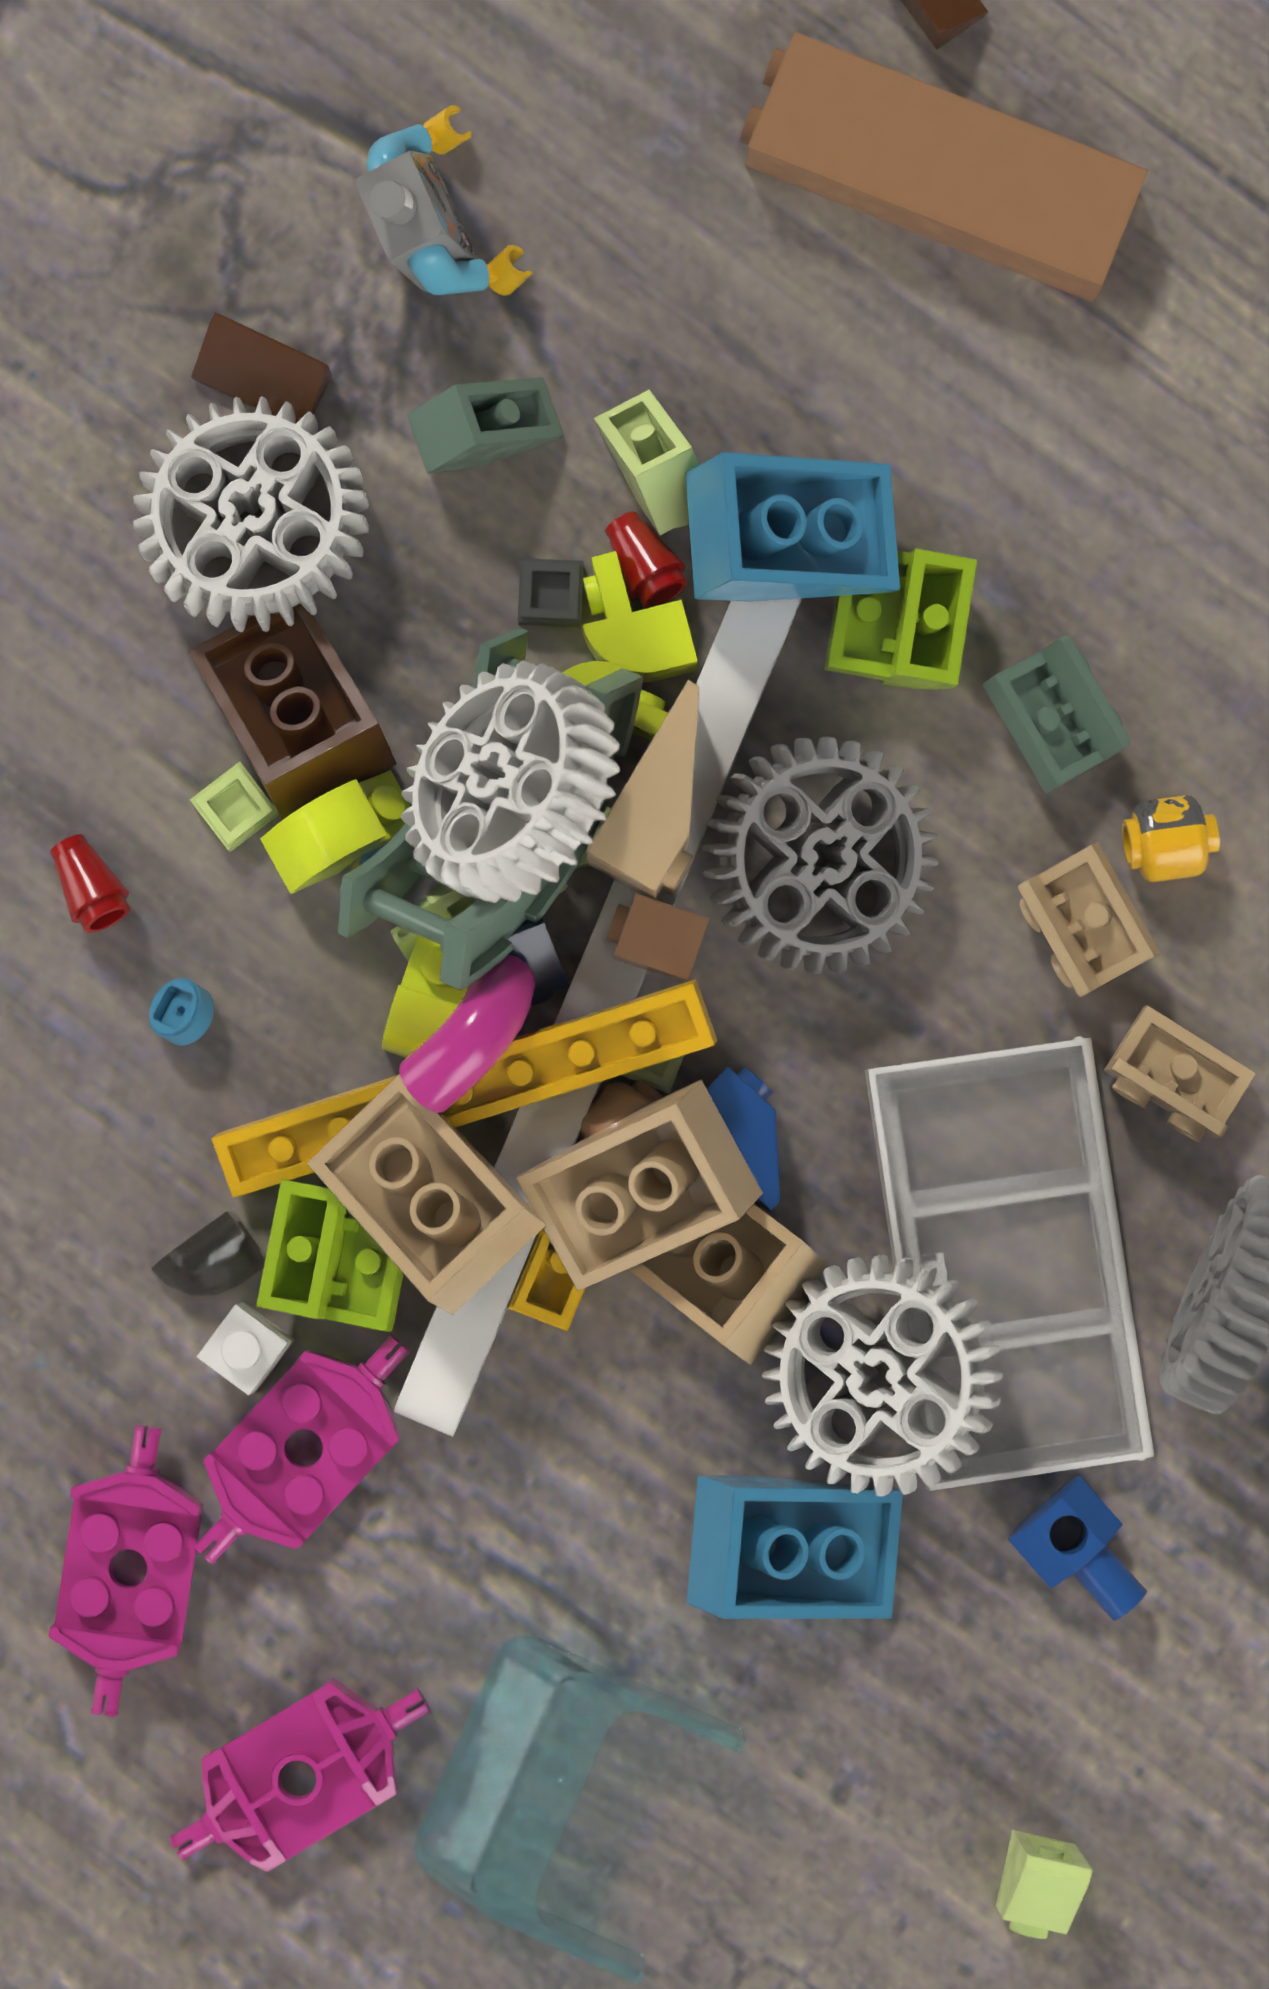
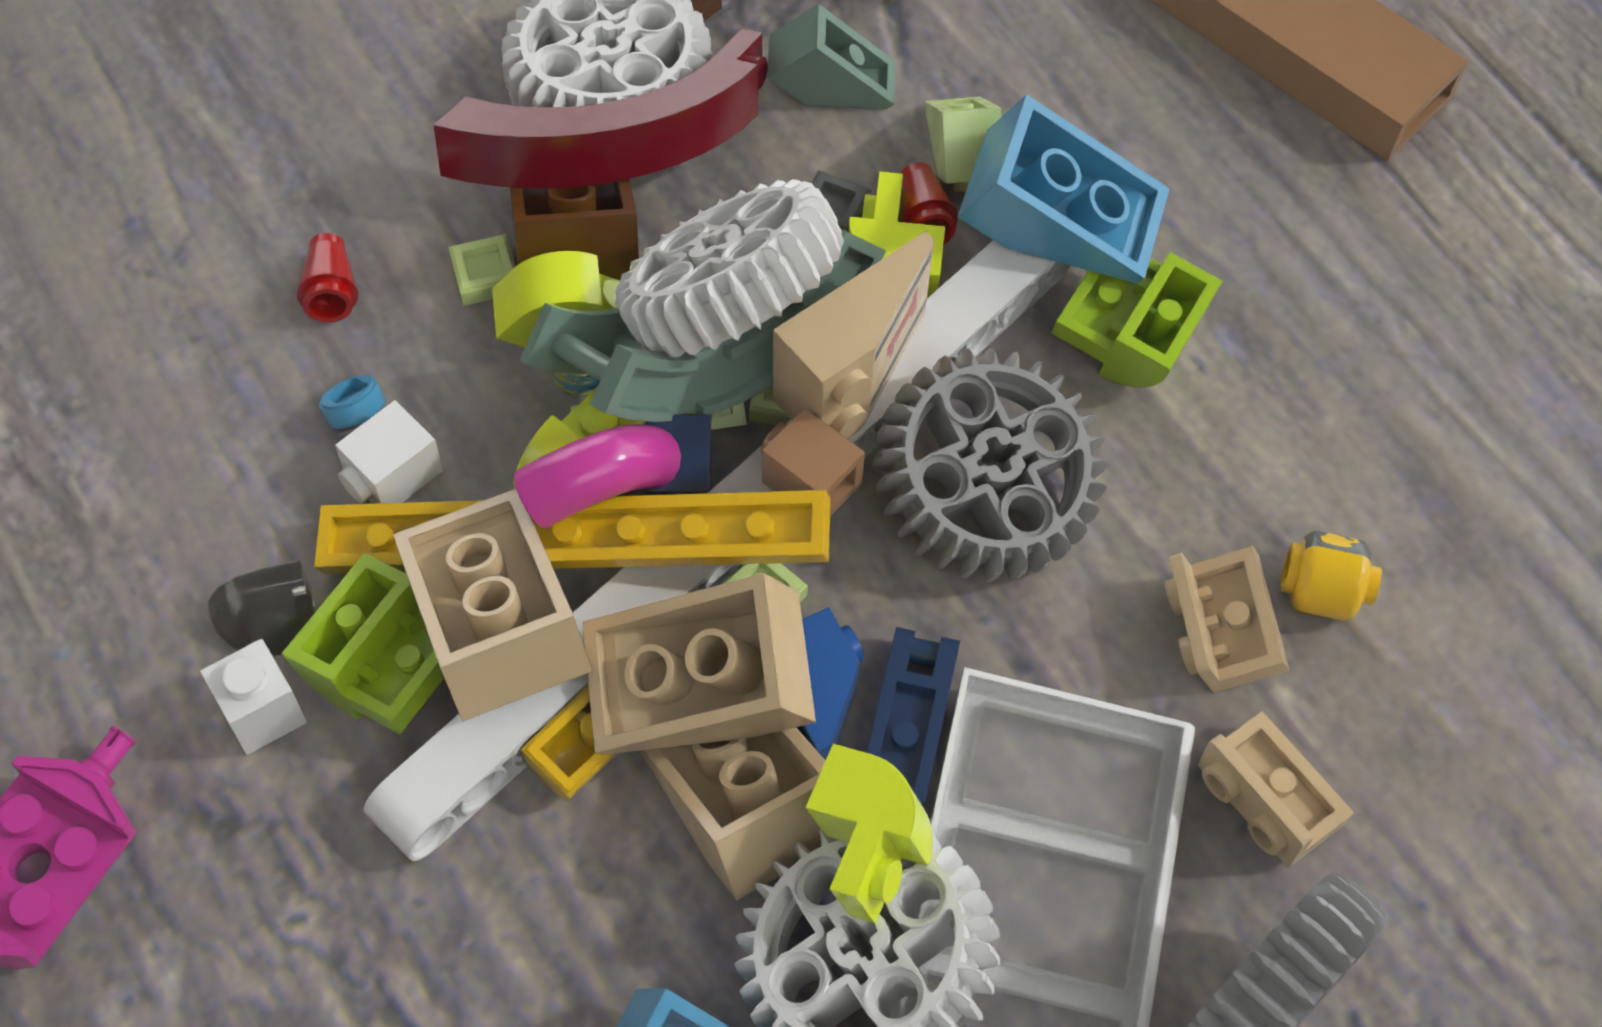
camera: 20 degrees right, 25 degrees down
(246, 1064) = (388, 457): none -> white brick
(259, 1482) = (202, 819): dark pink plate -> none
(317, 636) = (605, 140): none -> dark red arch
(834, 1131) = (913, 707): none -> dark blue plate
(863, 1274) = (879, 815): none -> neon yellow brick
(1057, 714) = (1256, 439): sand green bracket -> none

